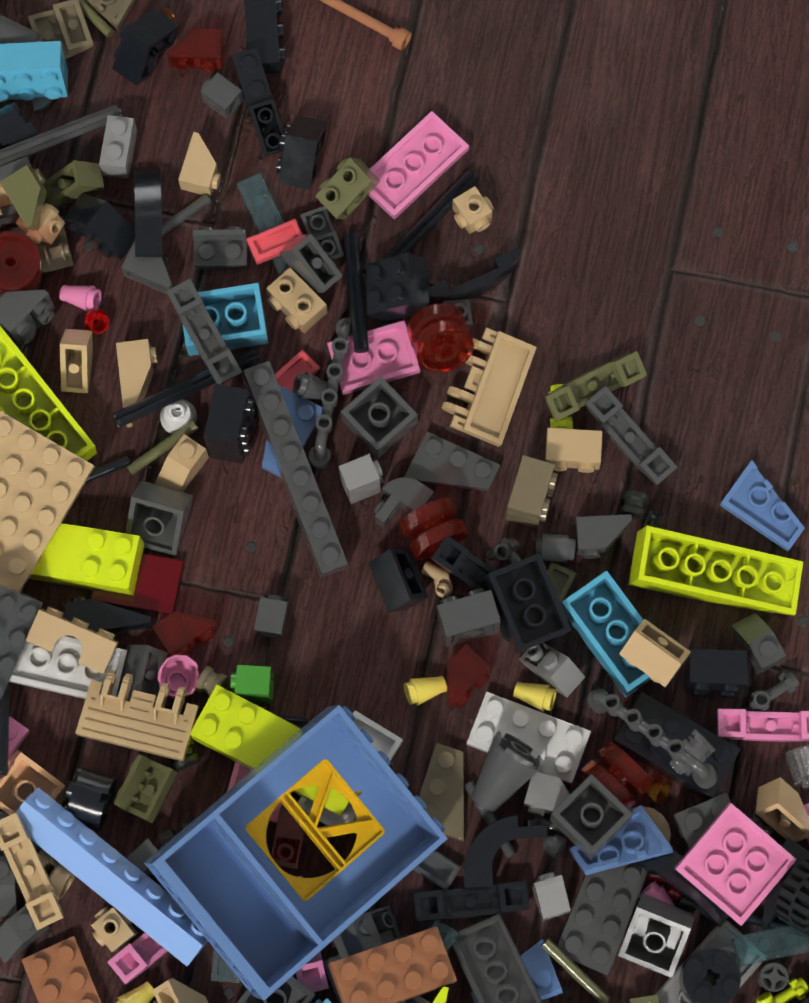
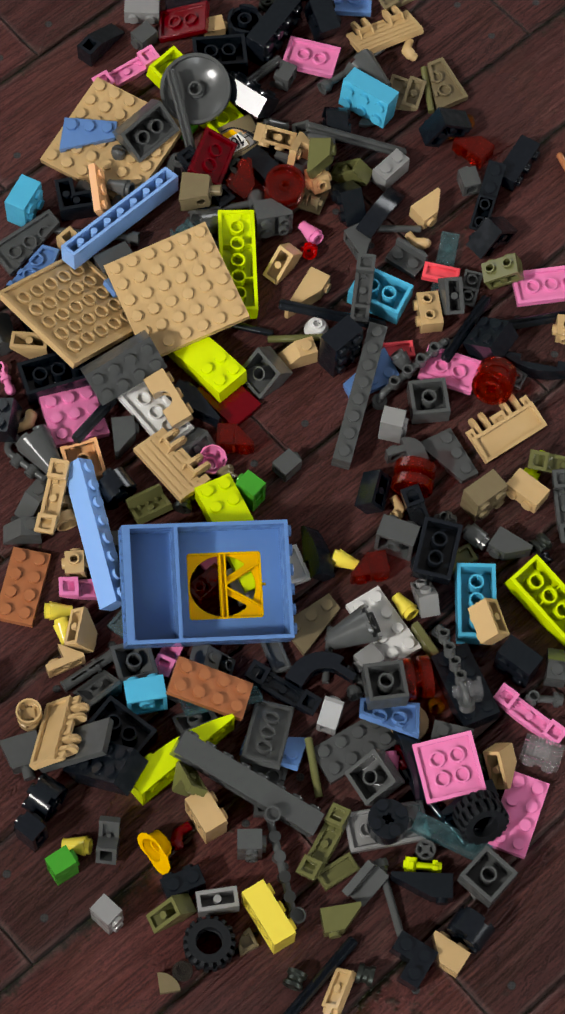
camera: 30 degrees right, 10 degrees down
(47, 719) = (124, 434): none -> dark grey slope
(218, 219) = (420, 243): none -> tan arm
(388, 706) = (316, 554): none -> black slope
(590, 722) = (423, 639): none -> olive tile

